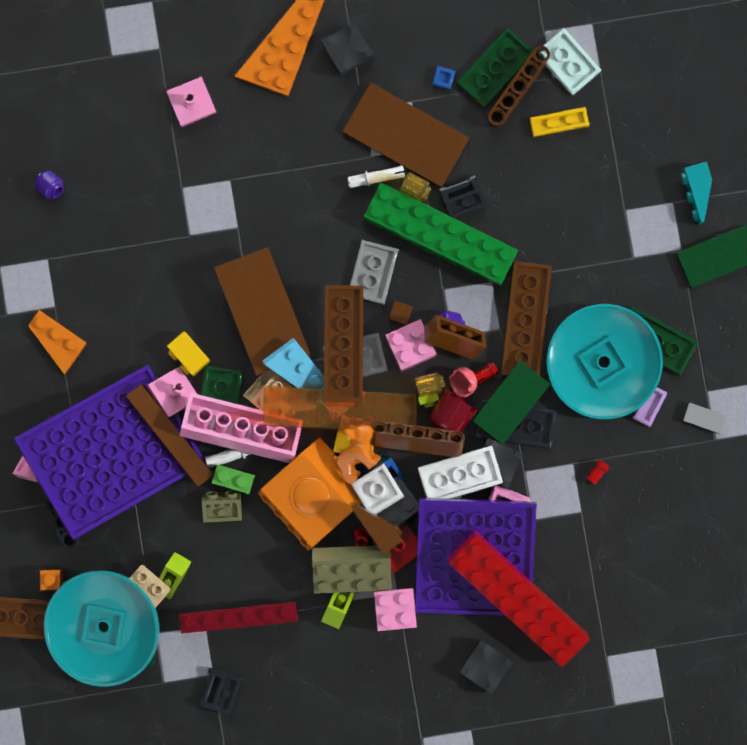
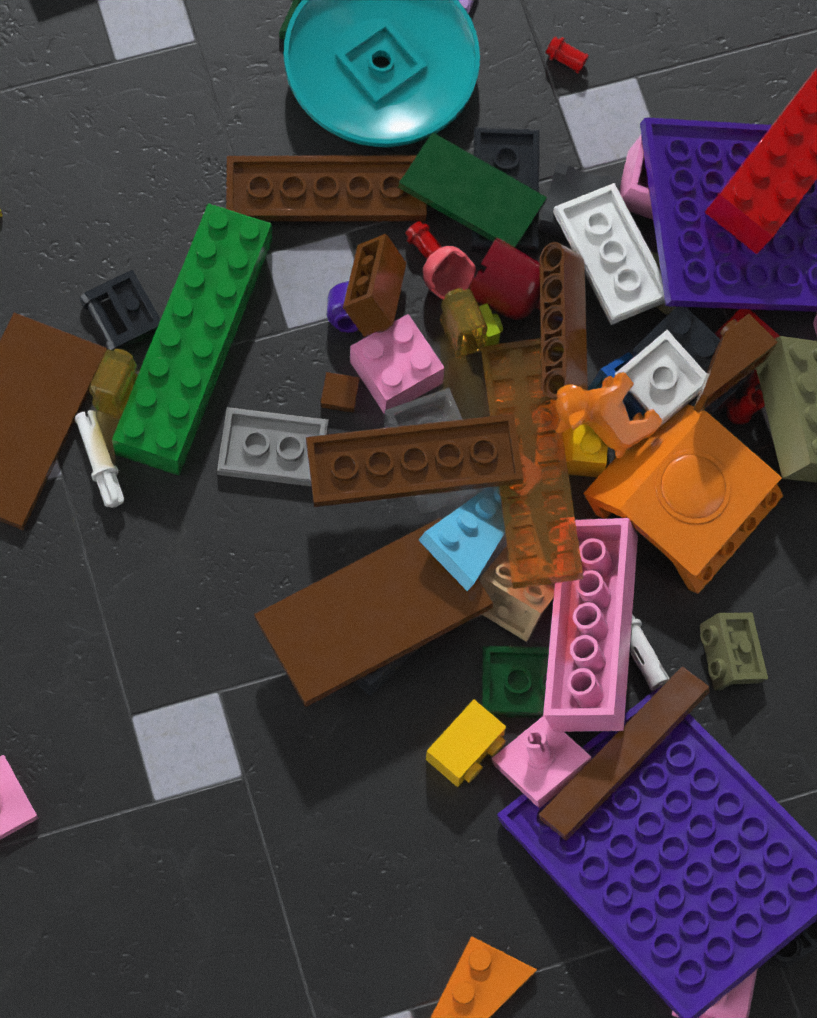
camera: 100 degrees left, 15 degrees down
(233, 479) = (682, 632): bright green brick -> none

